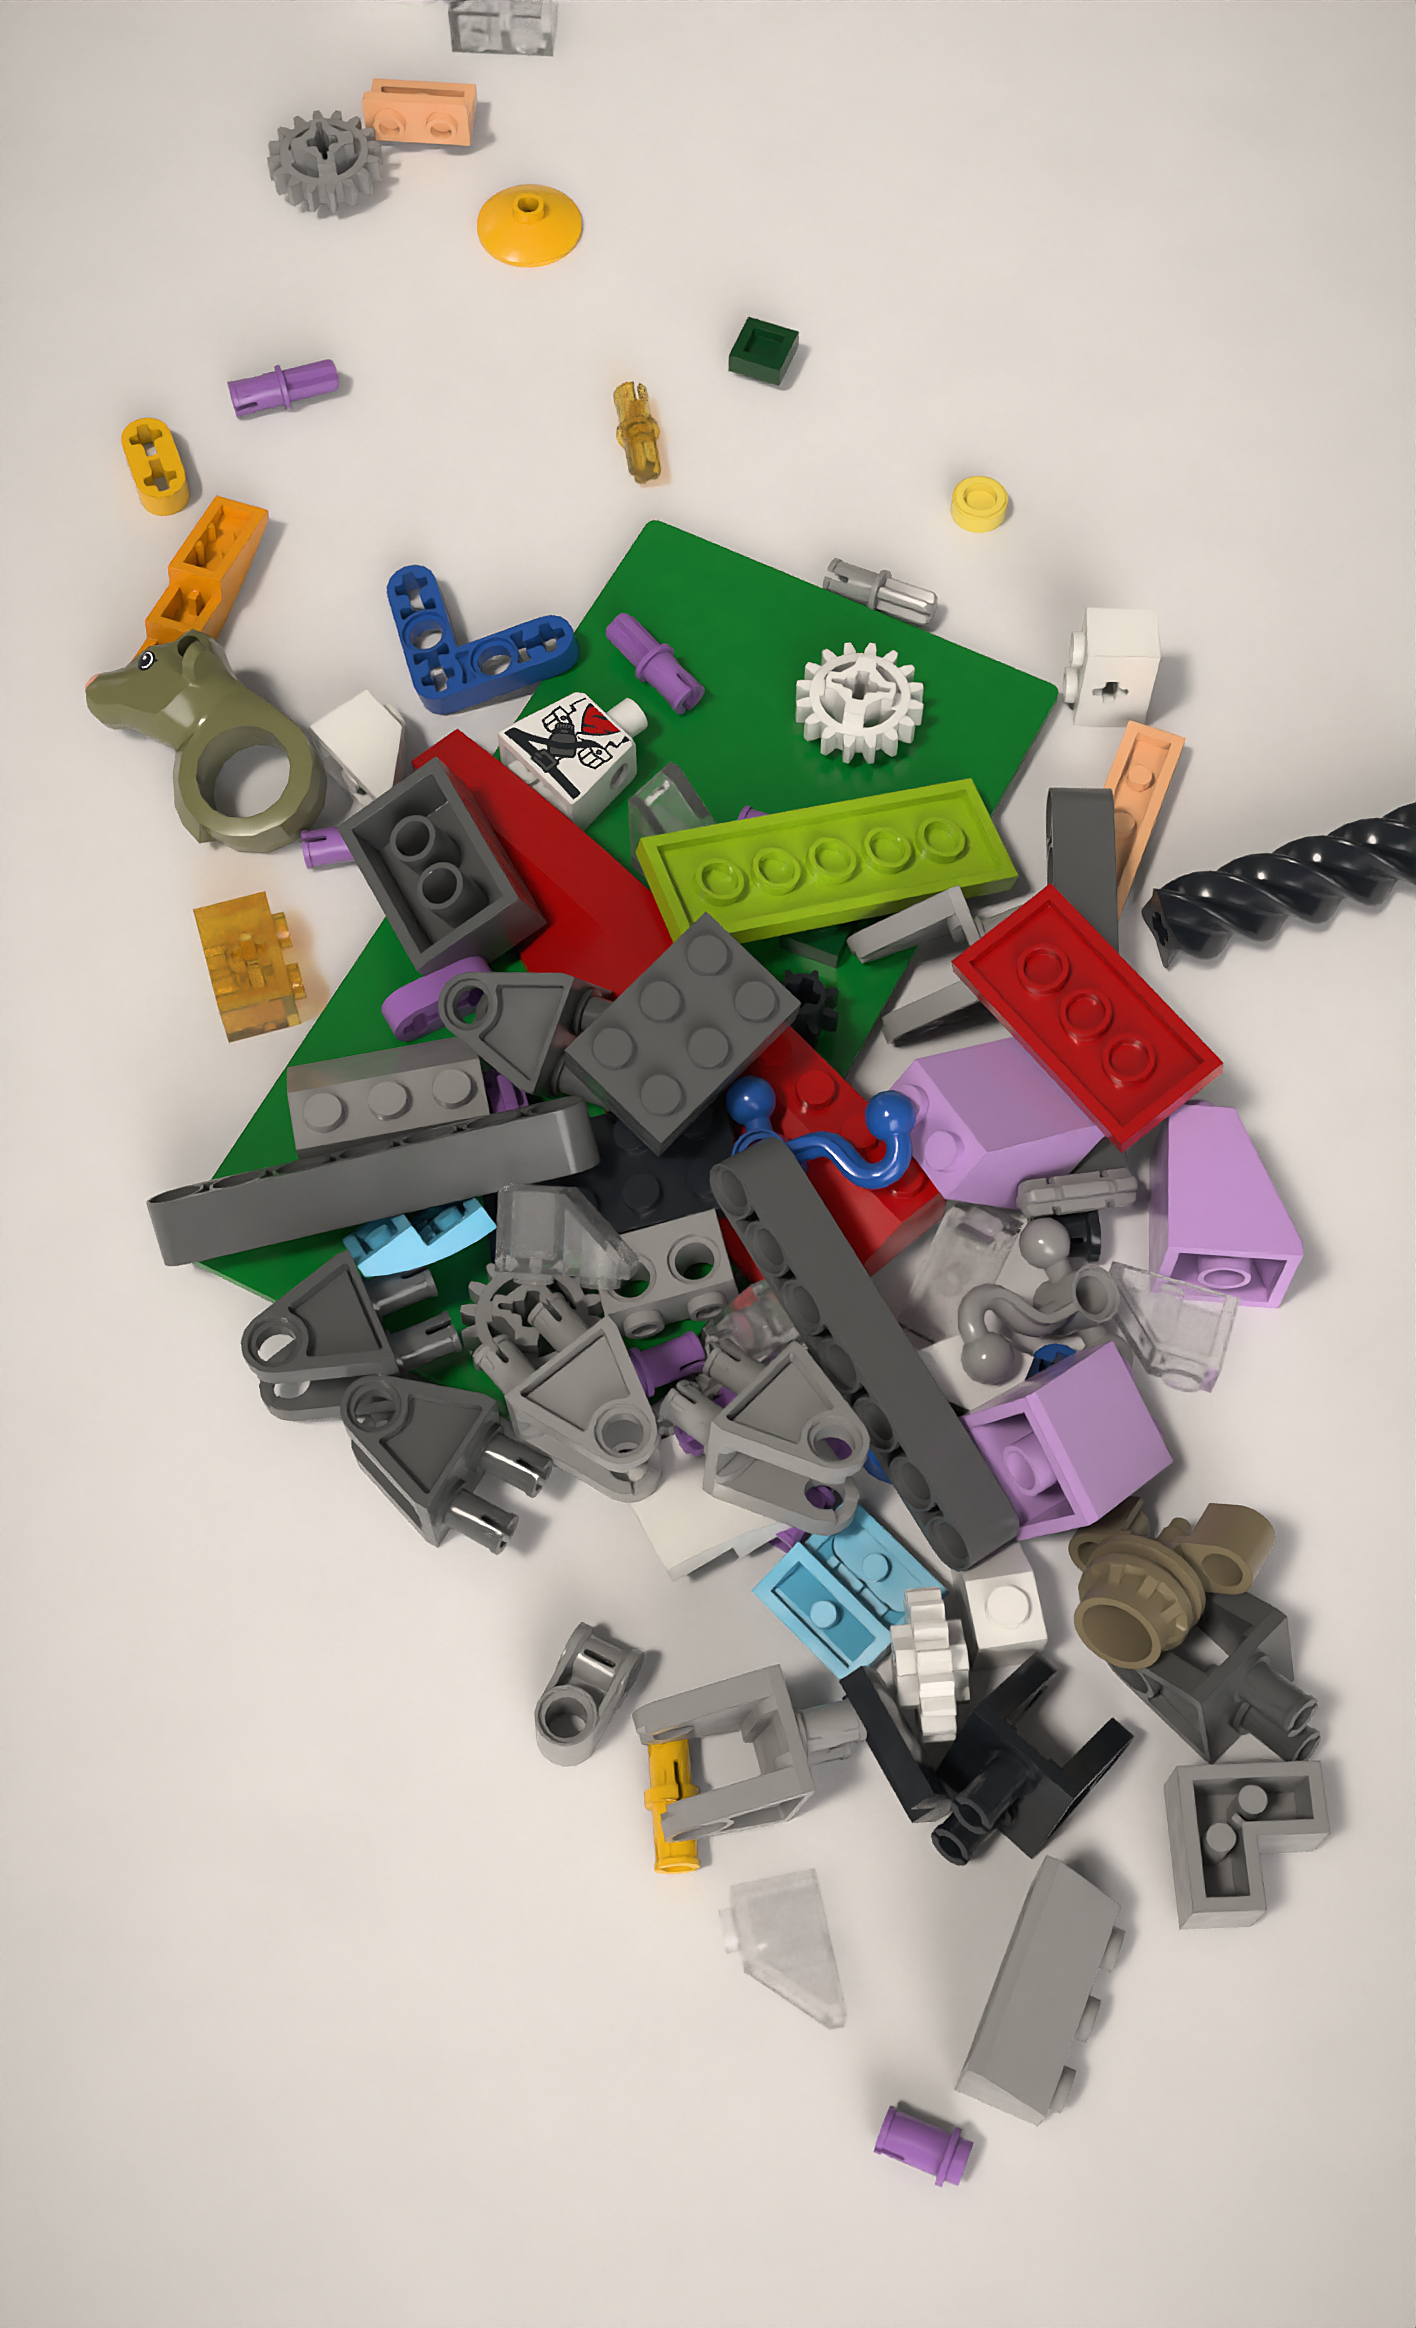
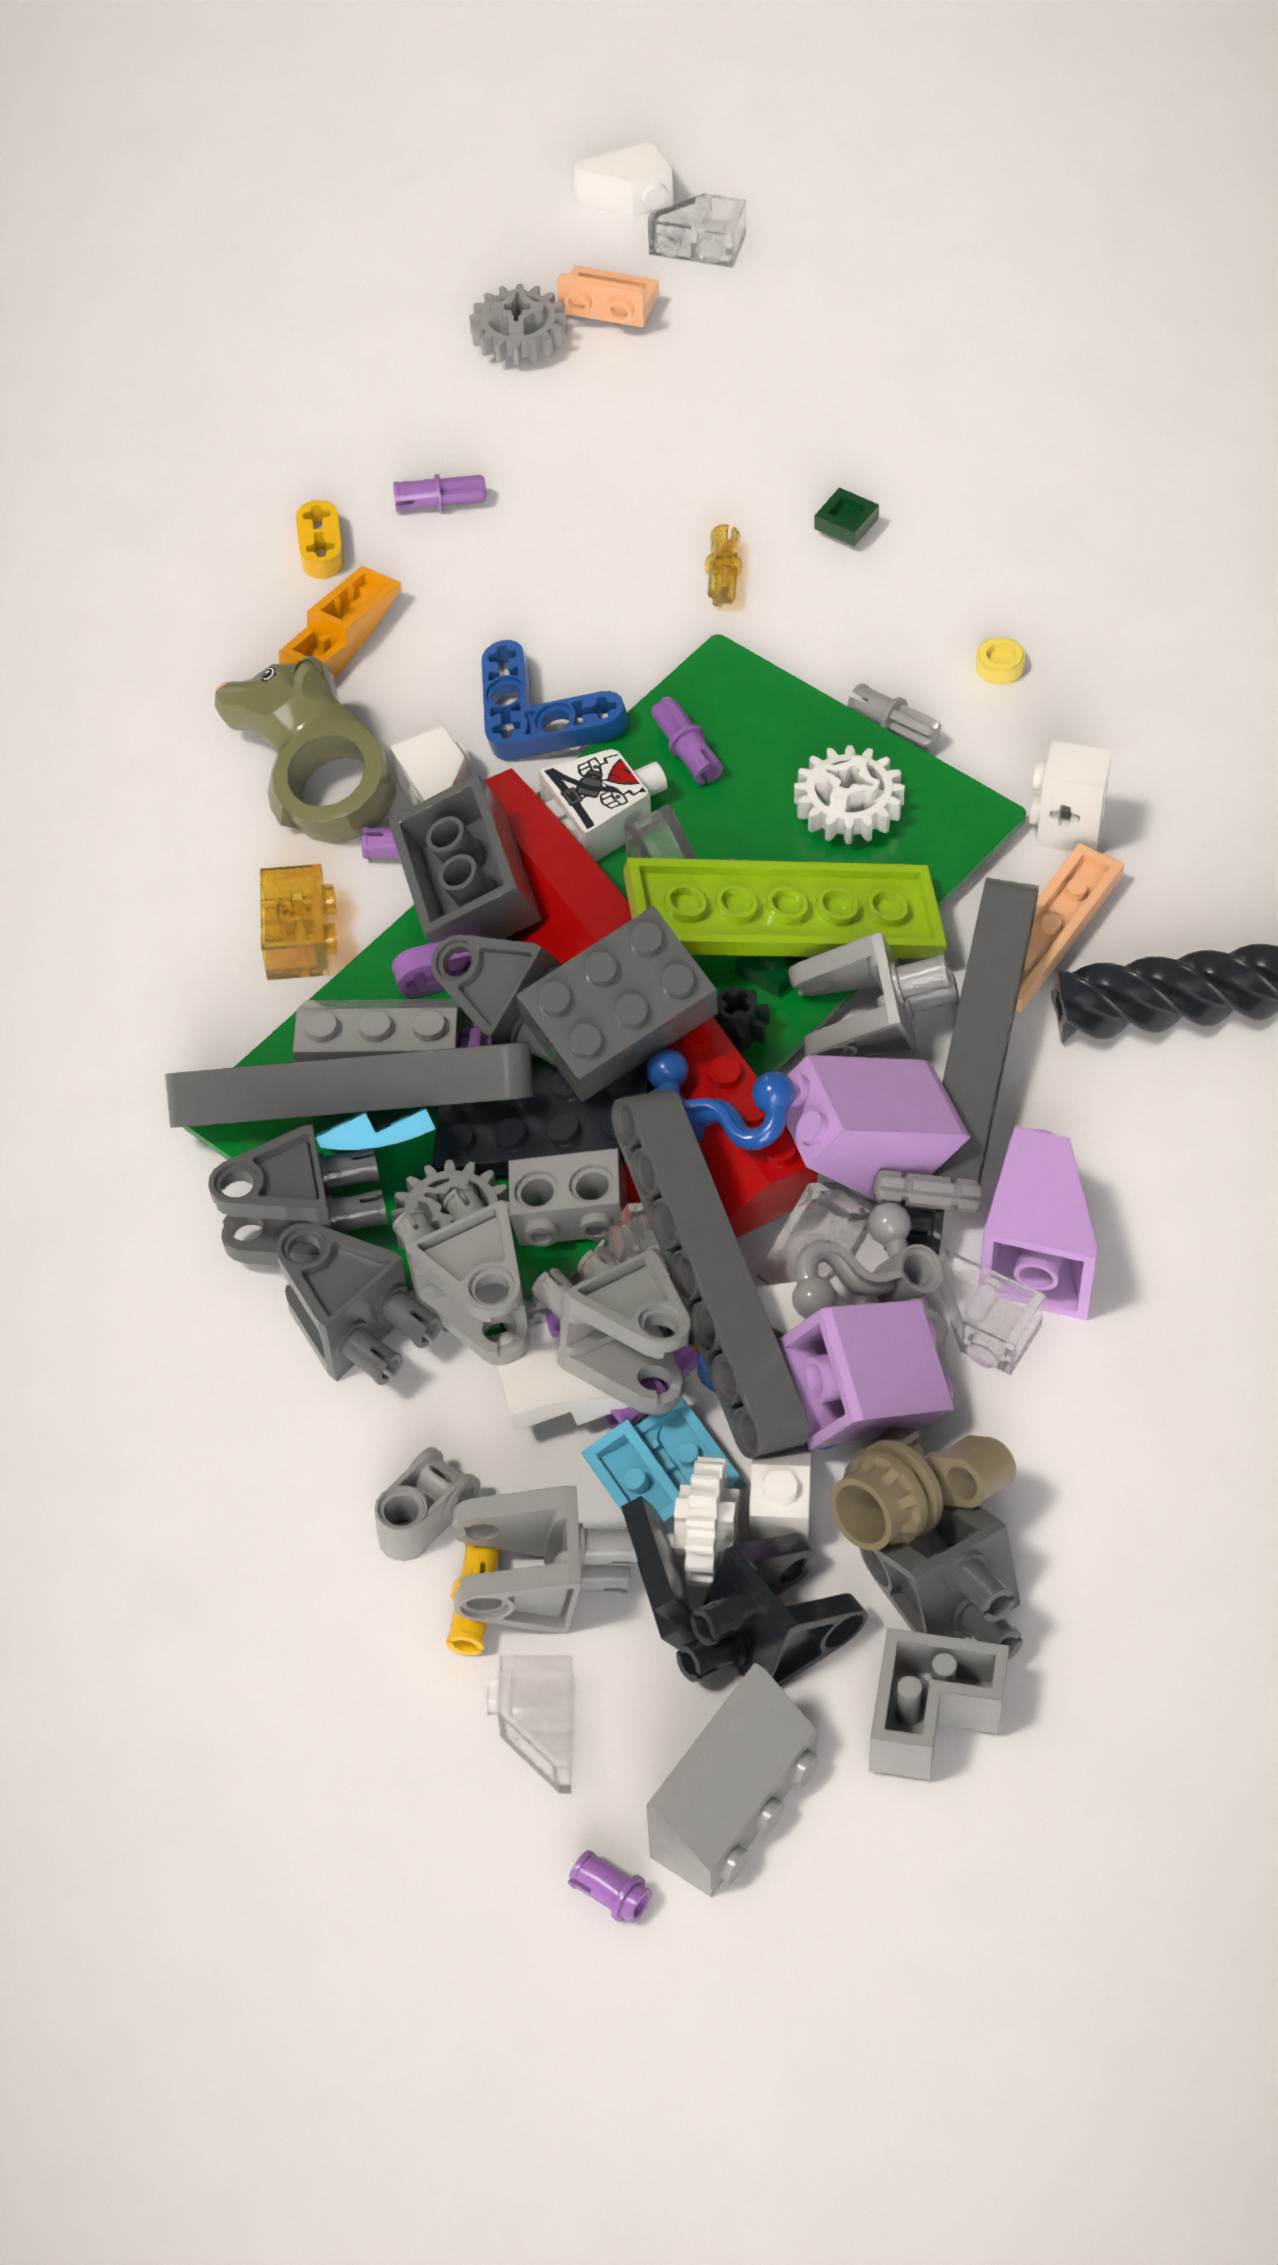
camera: 15 degrees right, 10 degrees down
(529, 225) = (677, 396): yellow dish -> none
(558, 1233) = (481, 1139): clear slope -> none
(667, 1361) = (533, 1264): medium lavender pin -> none
(1087, 1017) = (960, 1047): red plate -> none

